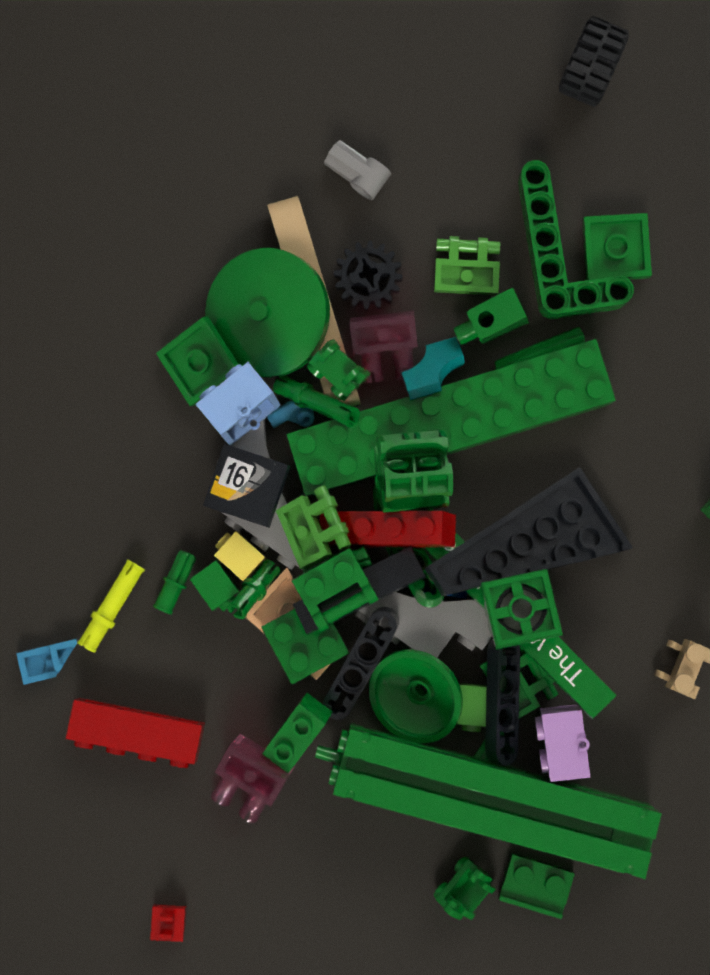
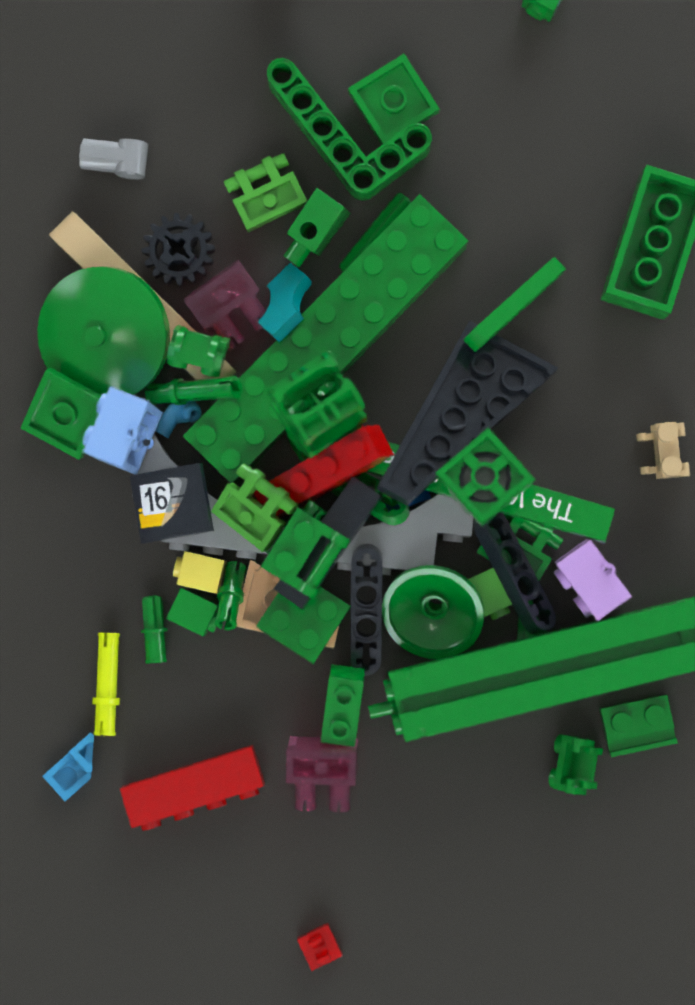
camera: 30 degrees left, 0 degrees up
(625, 474) = (514, 304): none -> green beam

